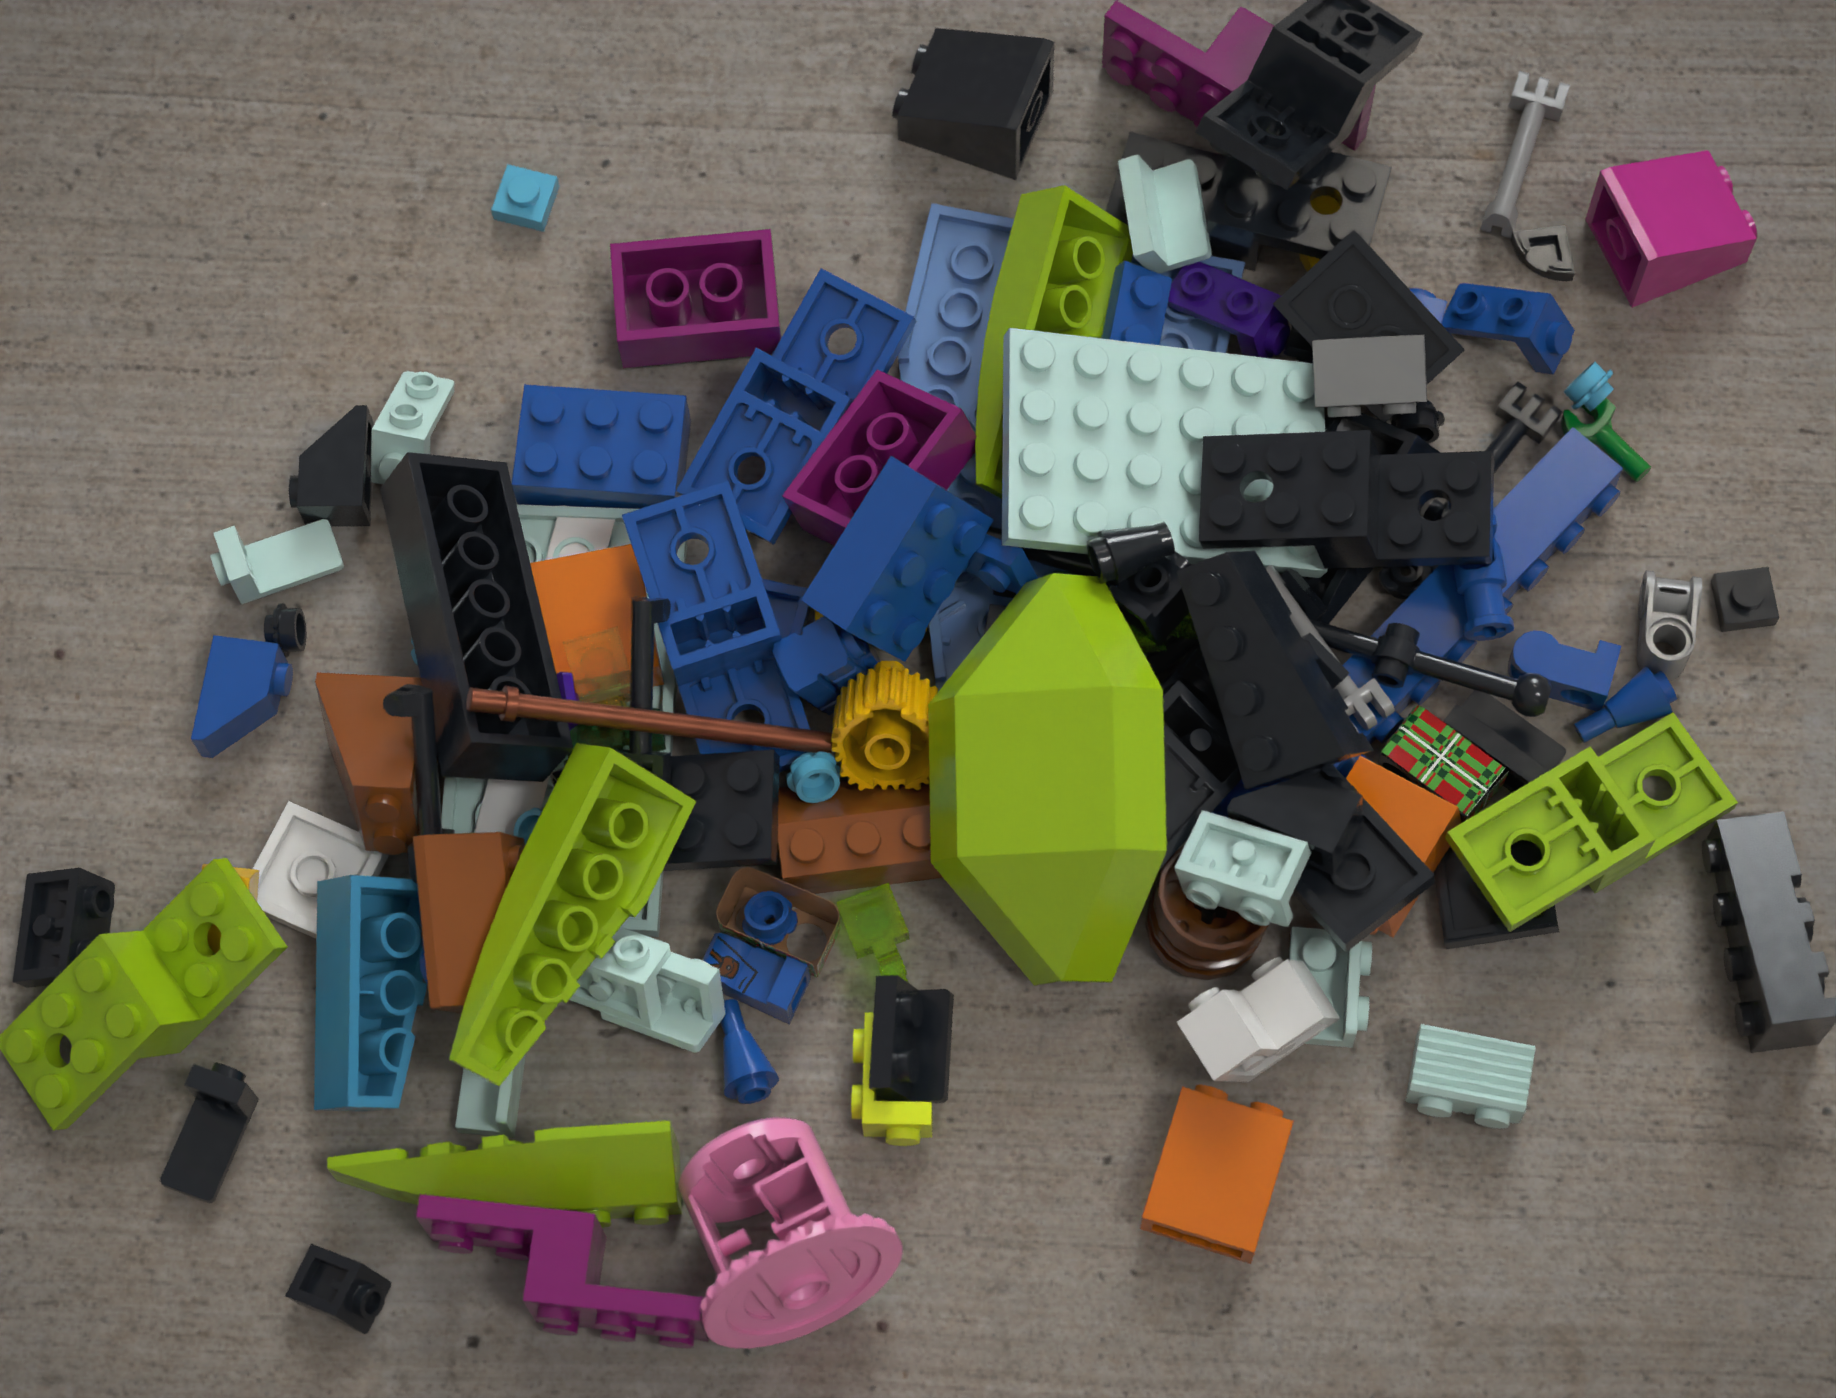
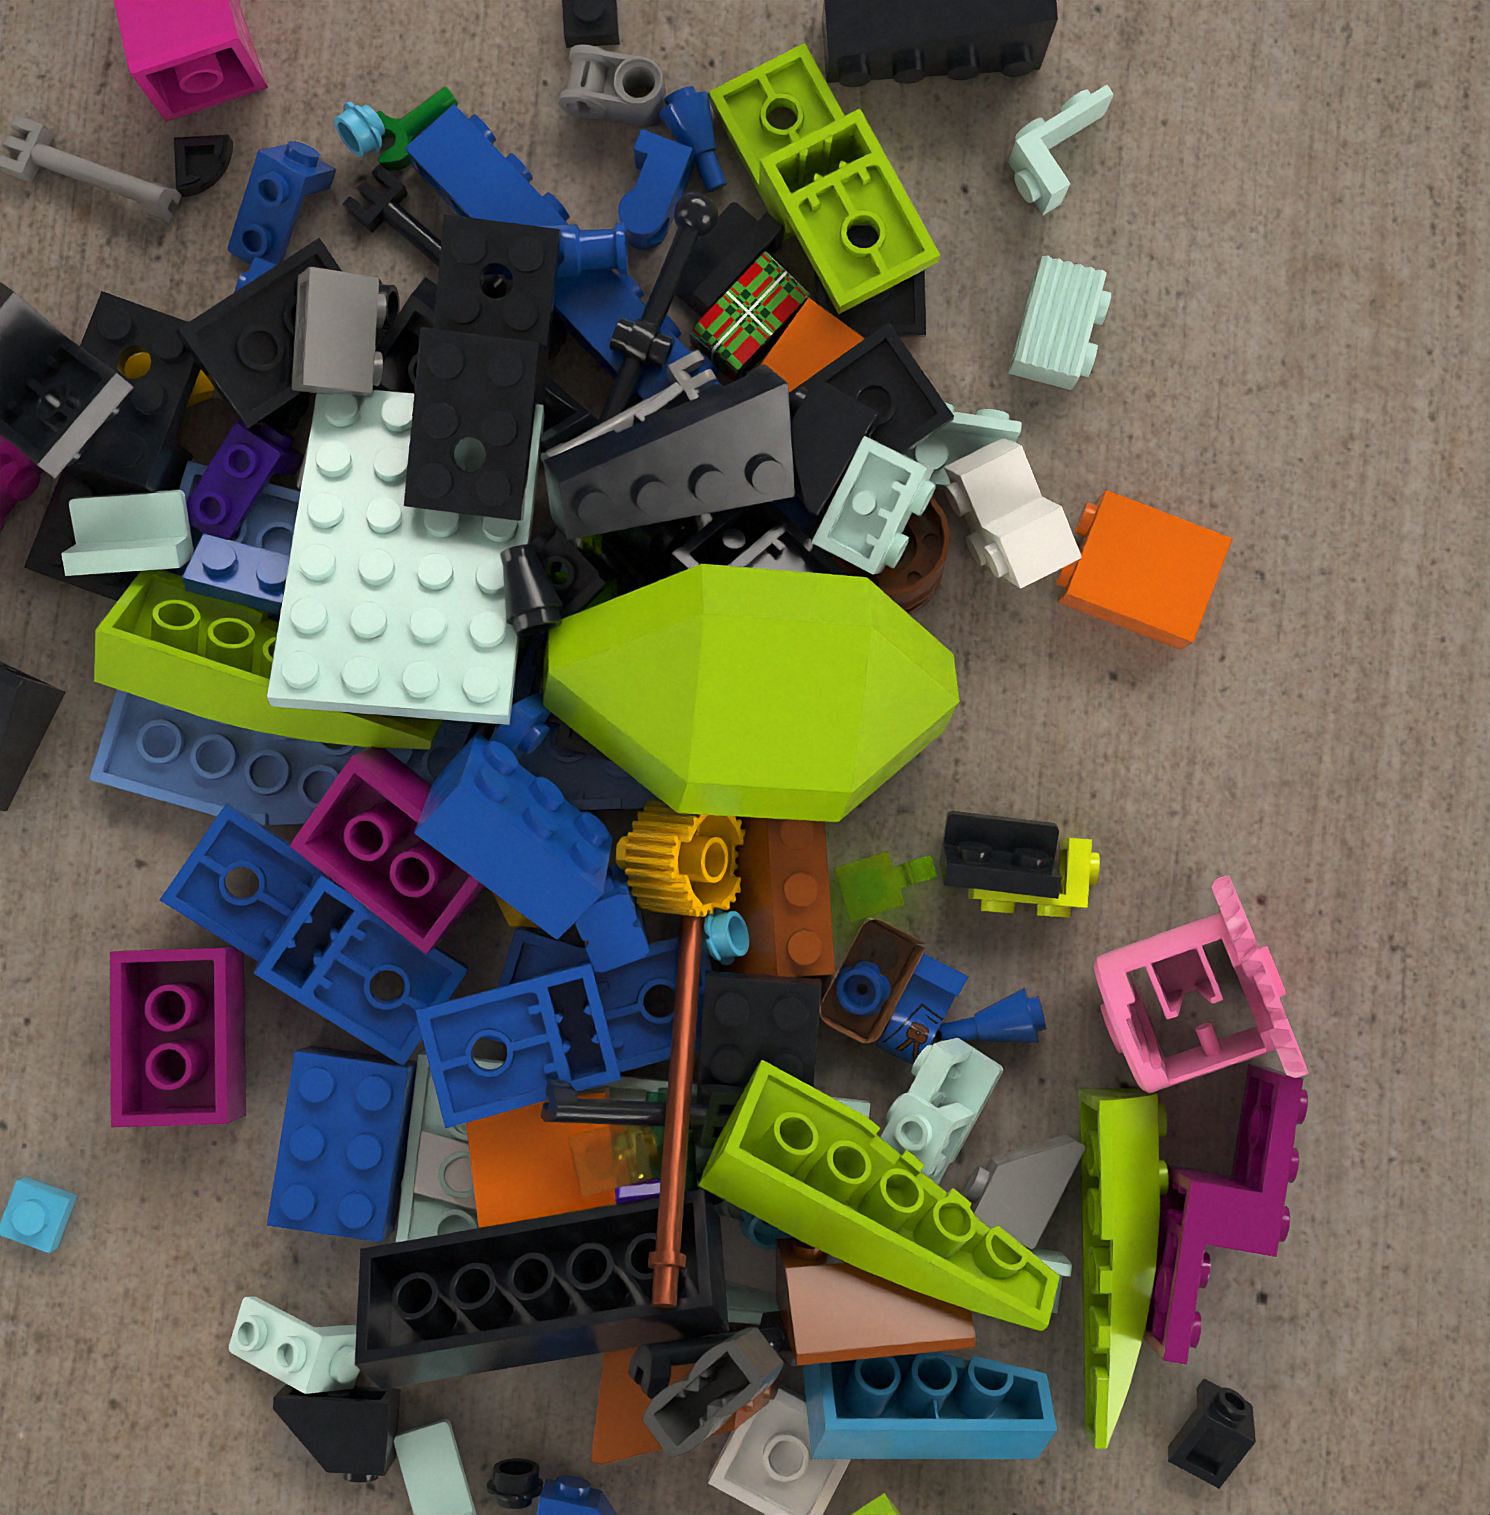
camera: 90 degrees left, 15 degrees up
(392, 751) = (713, 1390): none -> dark grey brick
(573, 1080) = (1024, 1187): none -> light grey slope
(1626, 1045) = (1035, 169): none -> light aqua bracket

